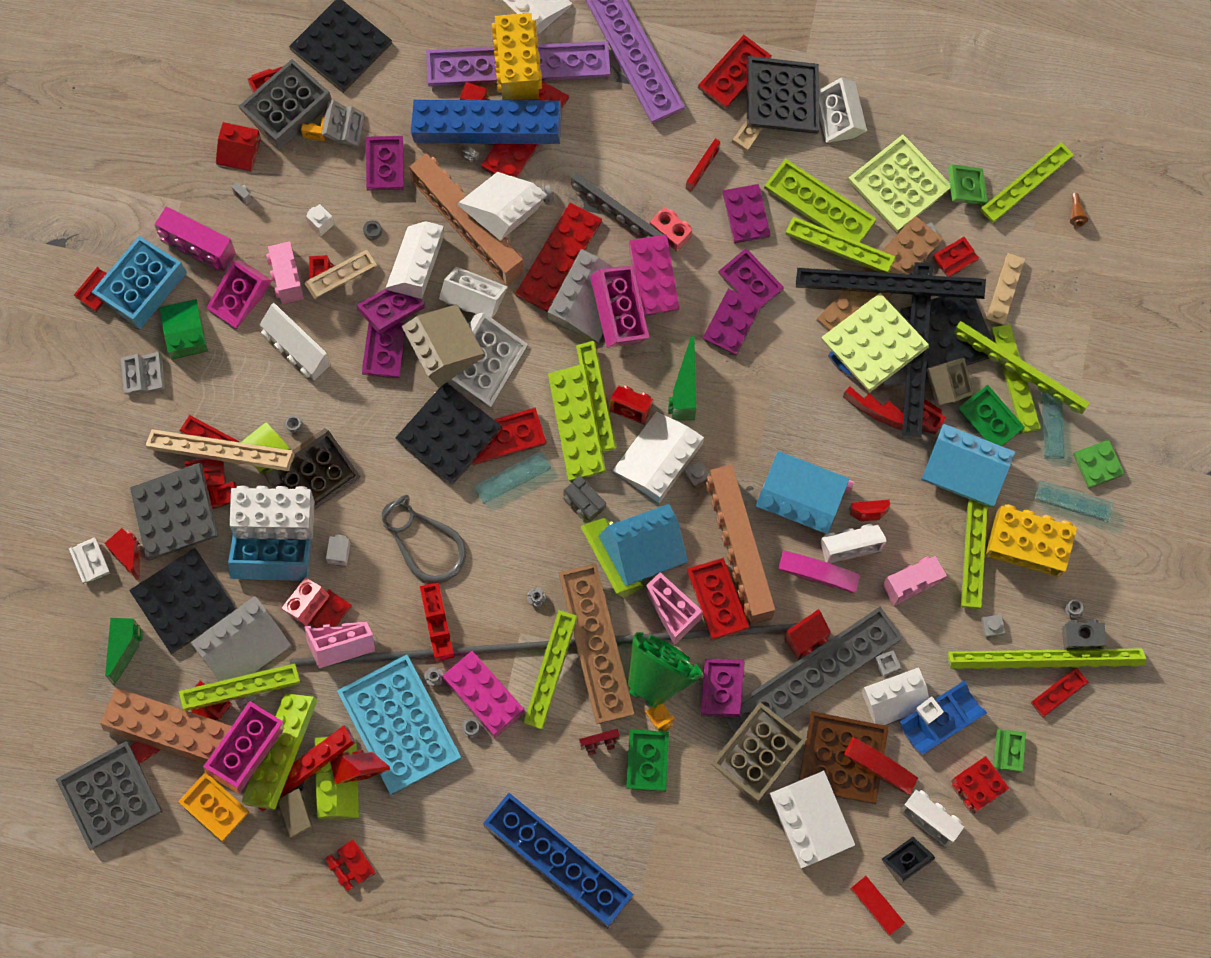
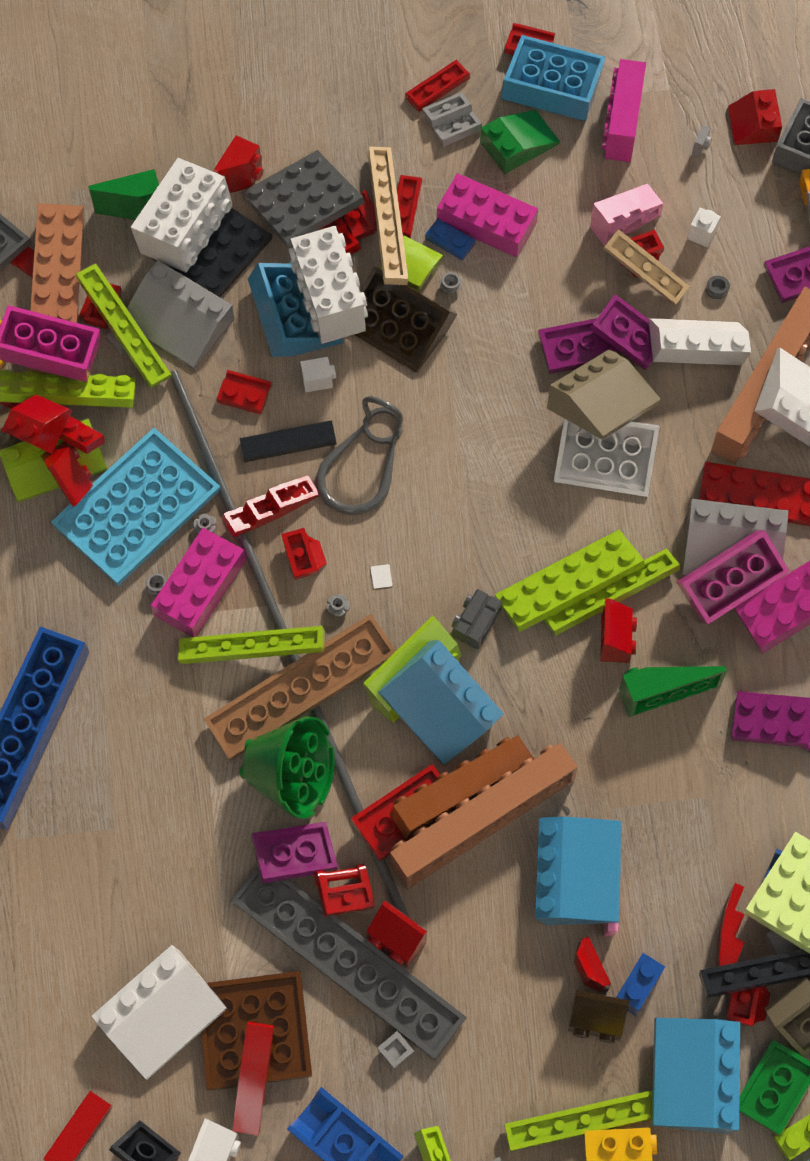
camera: 75 degrees right, 5 degrees down
(89, 560) = (218, 138): white plate -> none
(105, 374) = (437, 85): none -> red tile
(161, 608) = (182, 215): none -> white brick
(238, 292) = (583, 176): dark pink slope -> none
(245, 376) = (487, 215): none -> dark pink brick
(252, 412) = (450, 239): none -> blue plate
(294, 343) = (544, 249): white slope -> none
(305, 601) = (245, 361): coral brick -> none
(312, 774) = (37, 422): none -> red slope
(338, 644) = (207, 410): bright pink wedge -> none
(384, 592) = (288, 441): none -> black tile
(448, 433) = (501, 444): black plate -> none
(472, 292) = (685, 414): white slope -> none
(486, 610) = (303, 553): none -> red slope
(512, 477) = (476, 533): clear light blue plate -> none
(518, 433) = (522, 506): red plate -> none
(522, 558) = (381, 576): none -> white sticker
(591, 742) = (175, 719): dark red plate -> none
(647, 760) = (178, 794): green plate -> none
(659, 456) = (563, 688): white slope -> none
(660, 717) = (236, 793): light orange bracket -> none
(673, 607) = (373, 761): bright pink wedge -> none
(697, 474) = (560, 735): light grey plate -> none
(714, 552) = (452, 788): none -> dark orange brick
(758, 752) = (223, 920): dark tan slope -> none
(768, 661) = (348, 897): none -> red plate
(819, 571) = (485, 926): dark pink slope -> none
(852, 543) = (536, 955): white slope -> none
(893, 481) = (640, 982): none -> blue brick
(895, 697) = (353, 1074): white slope -> none
(908, 517) = (598, 1016): none -> dark brown slope
(913, 580) = (516, 1049): bright pink wedge -> none
(929, 710) = (344, 1119): white plate -> none

